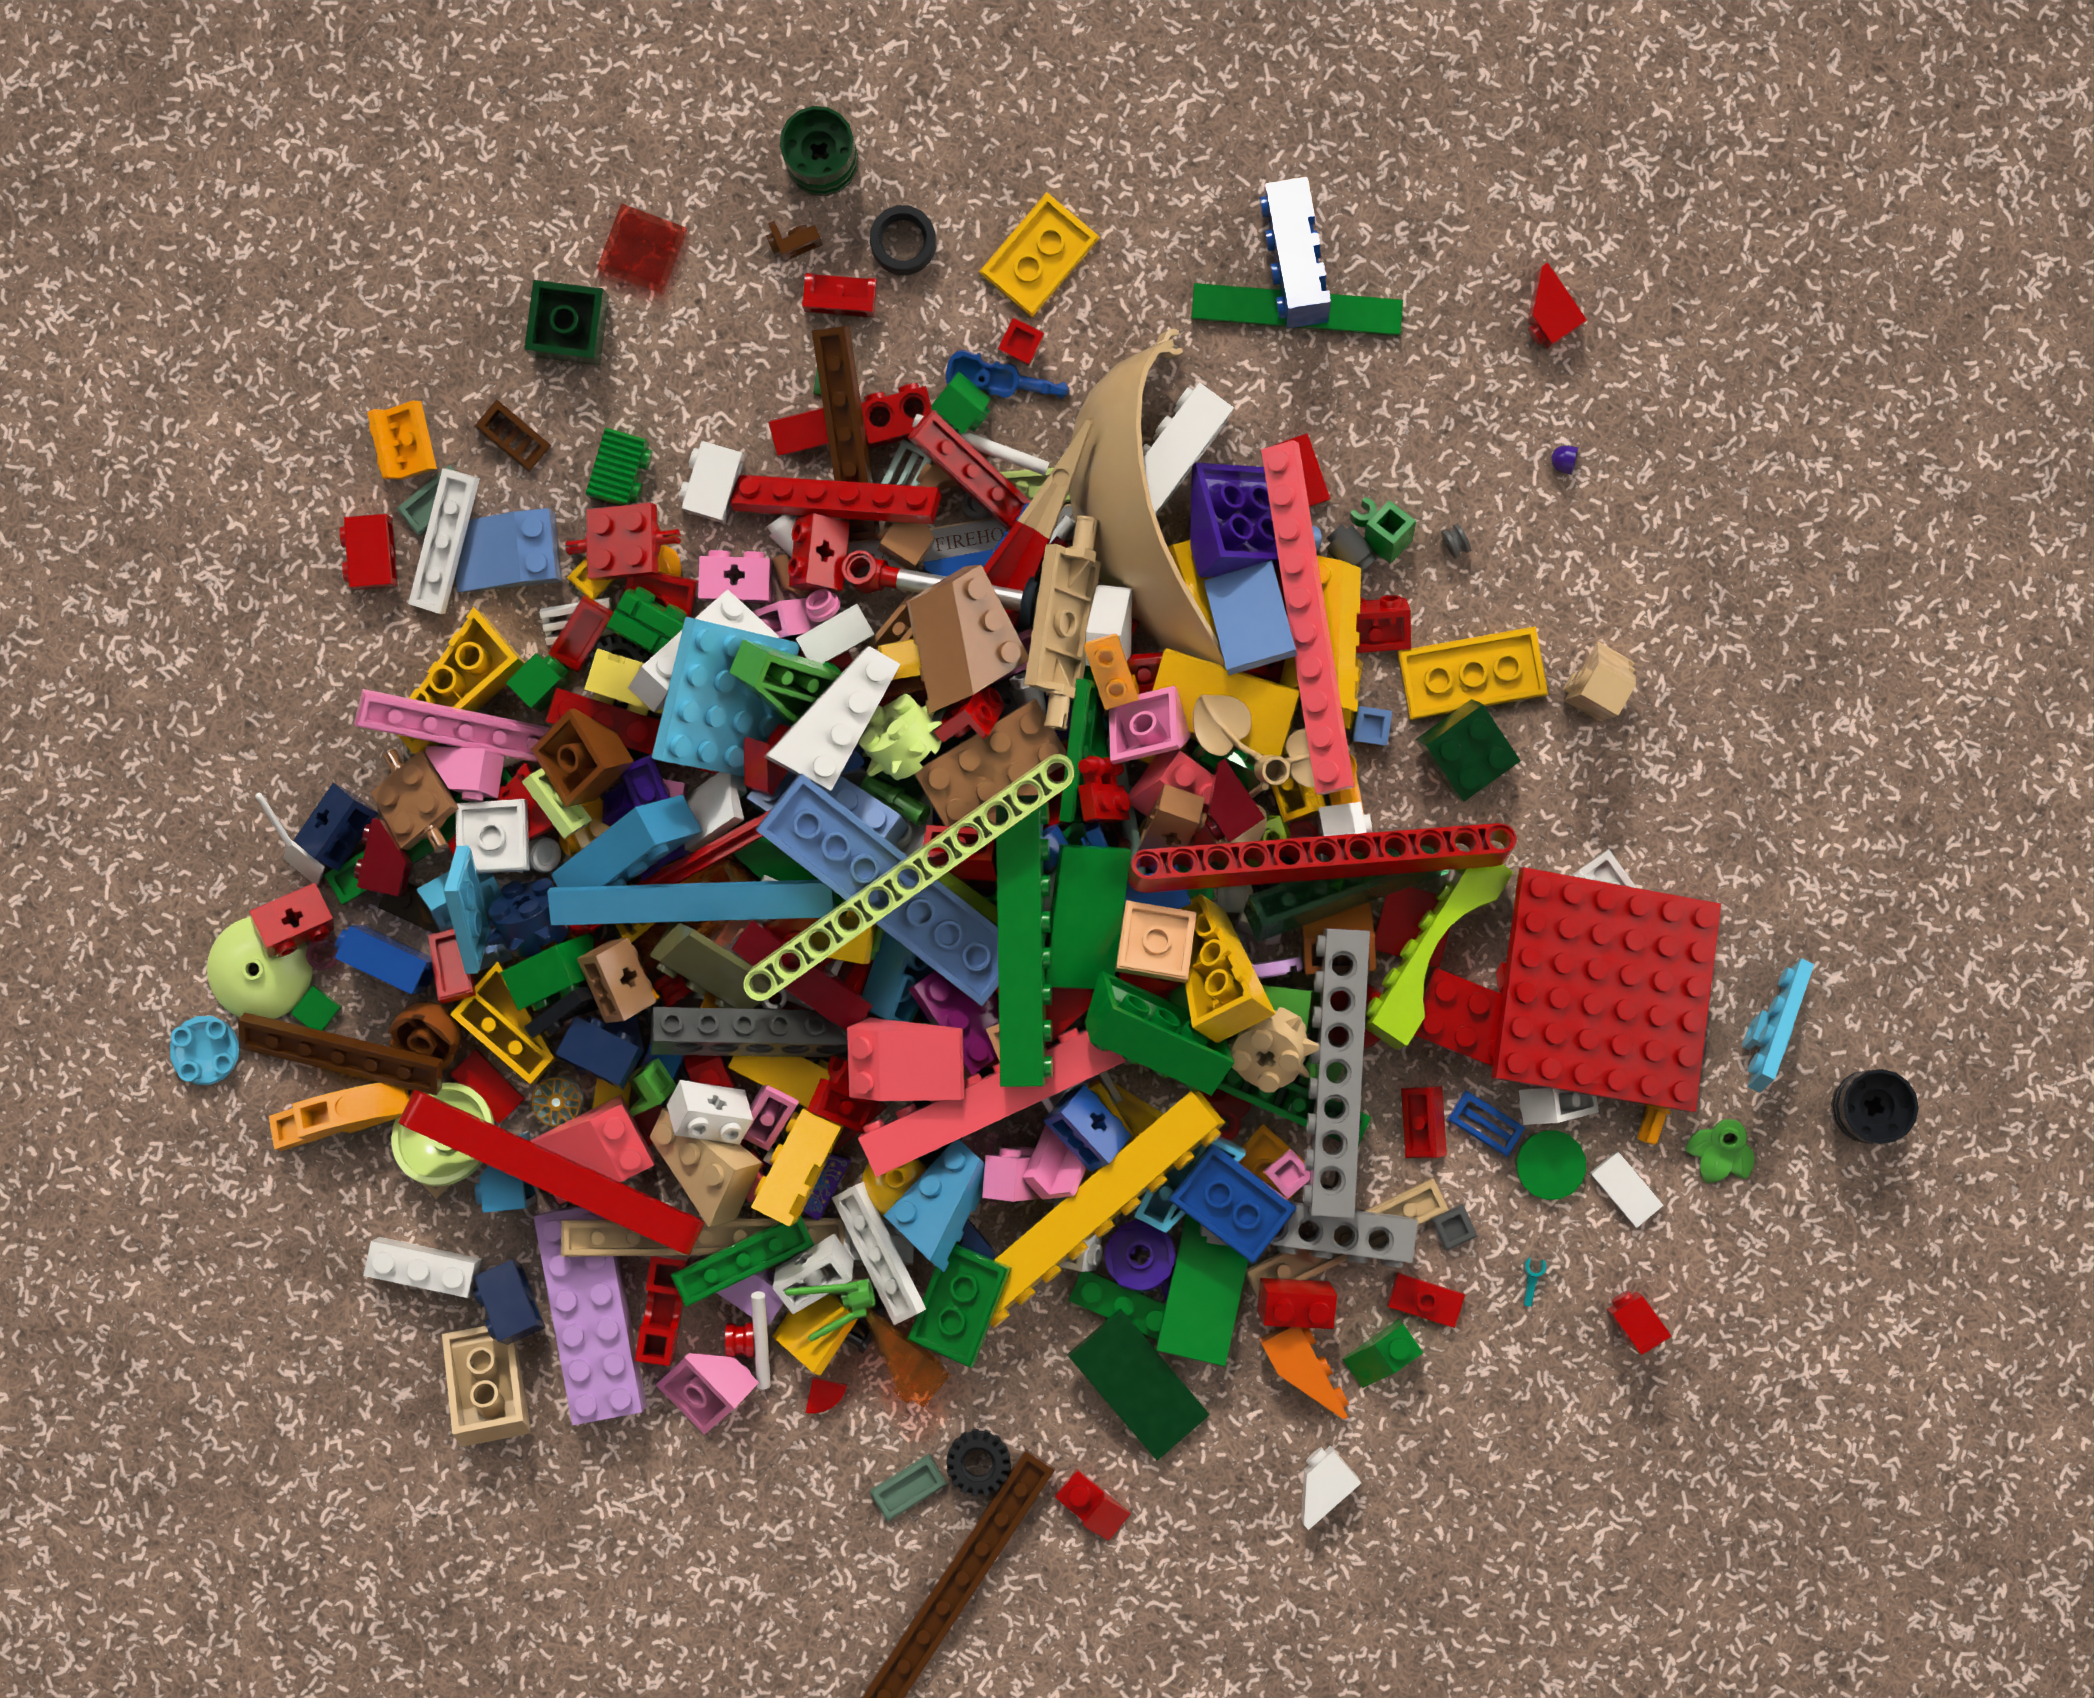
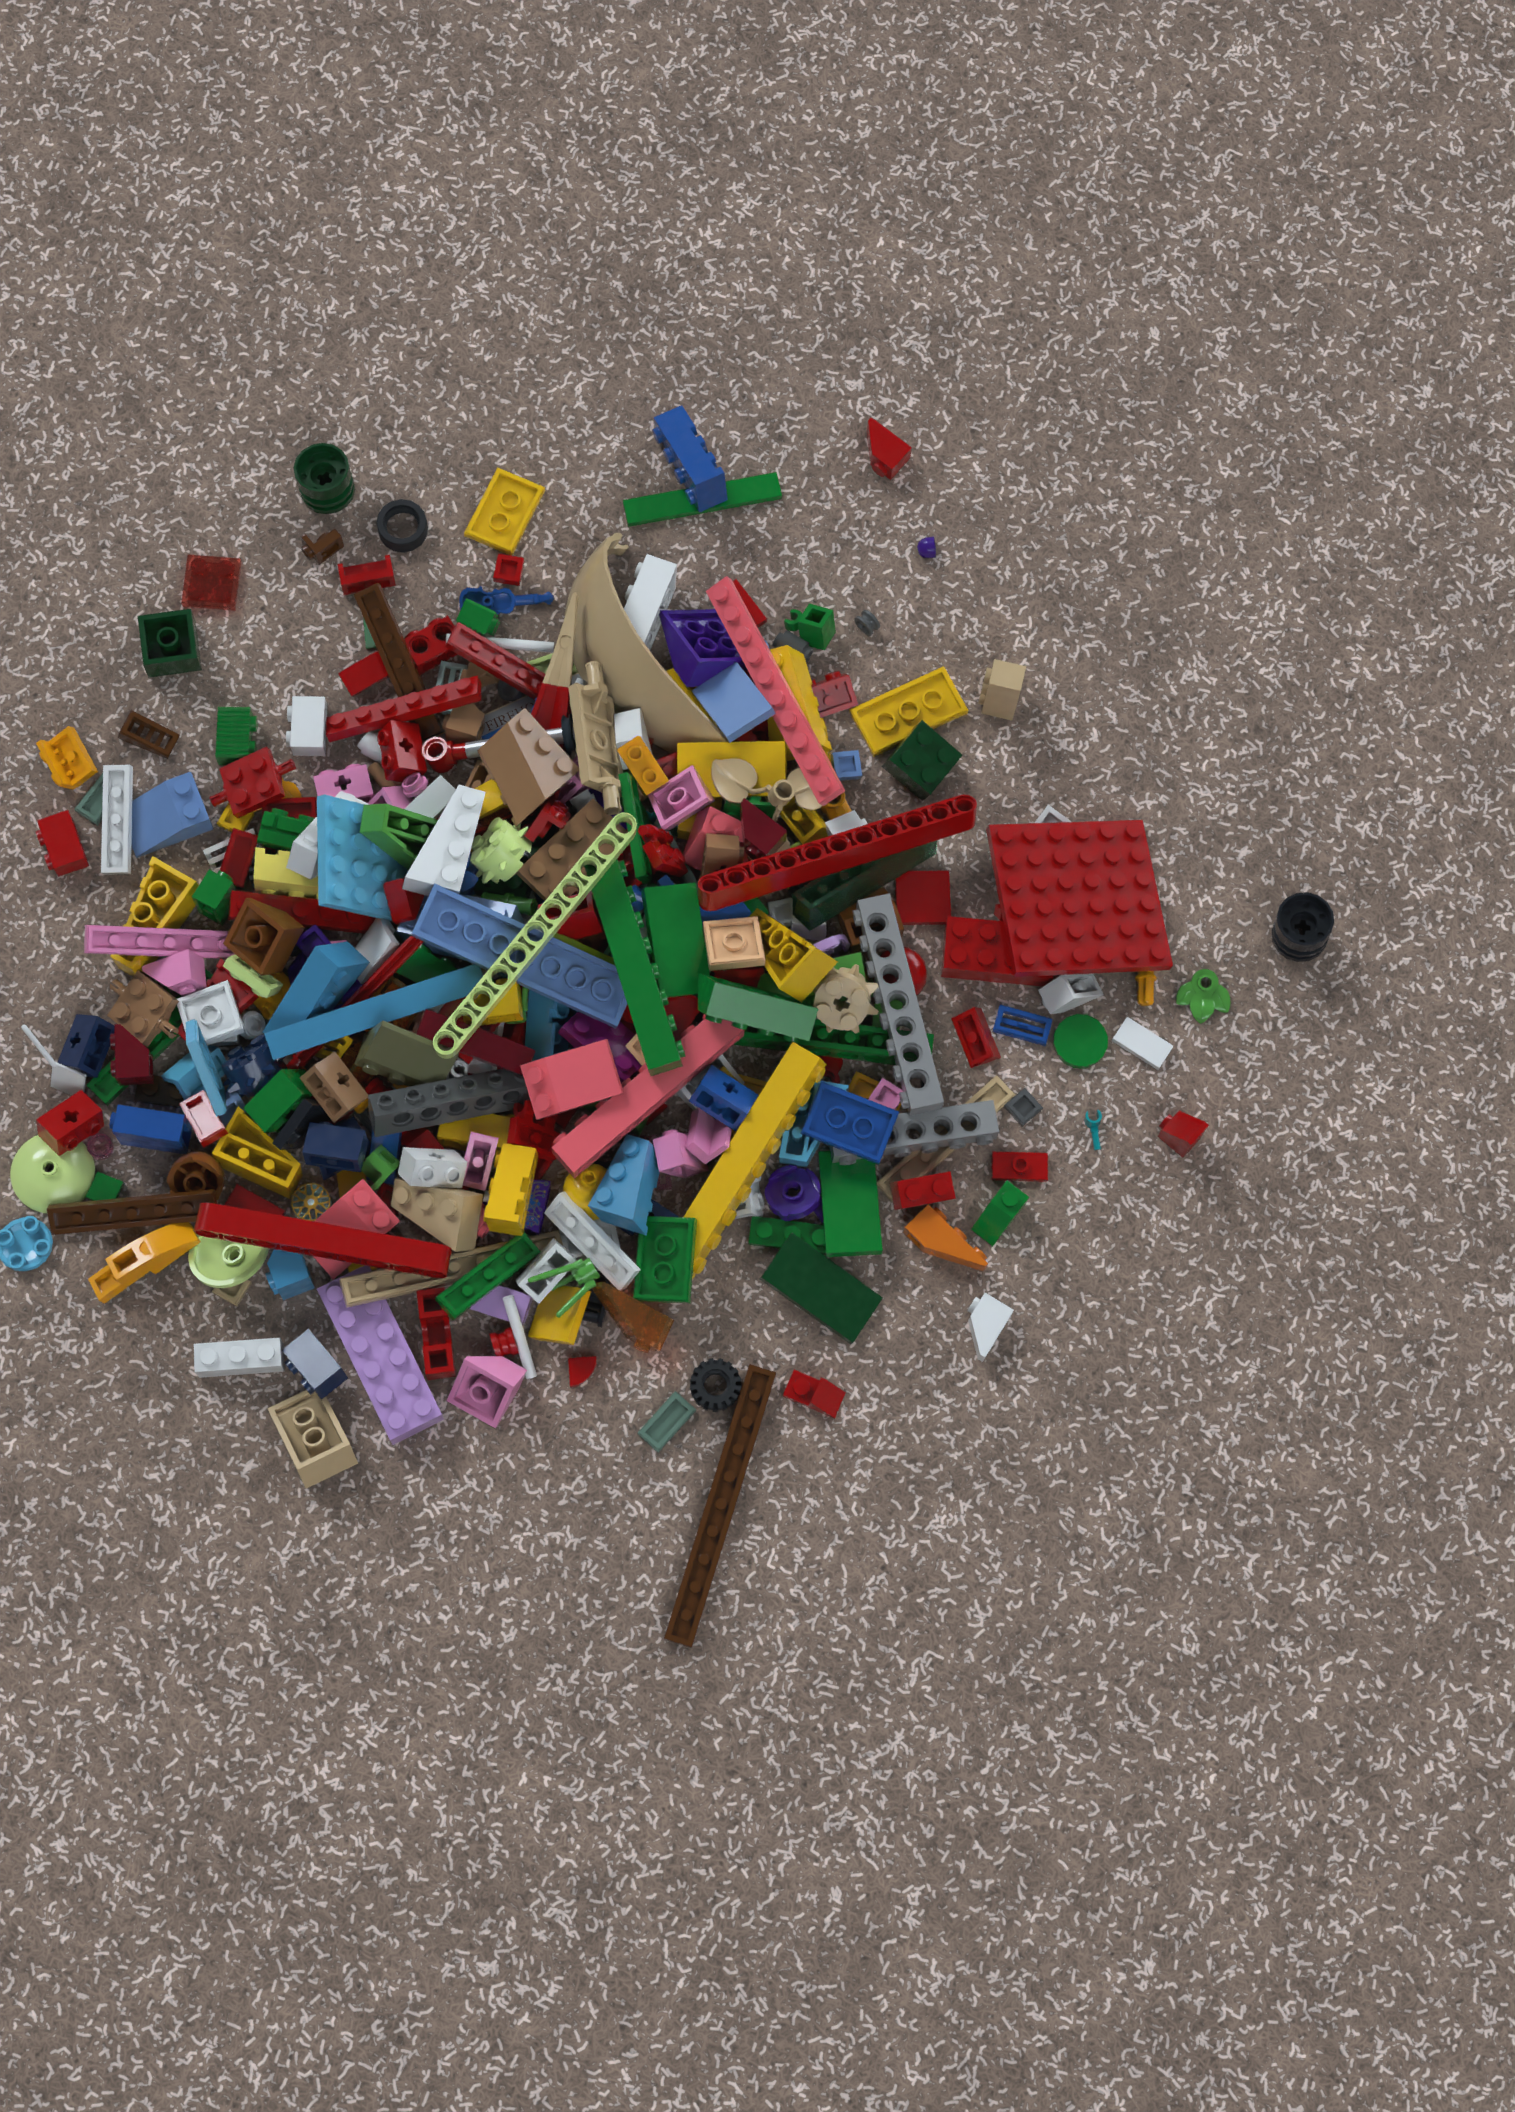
camera: 25 degrees left, 15 degrees down
(1400, 1007) = (931, 944): lime arch -> none
(1774, 1028) = (1210, 896): medium azure plate -> none

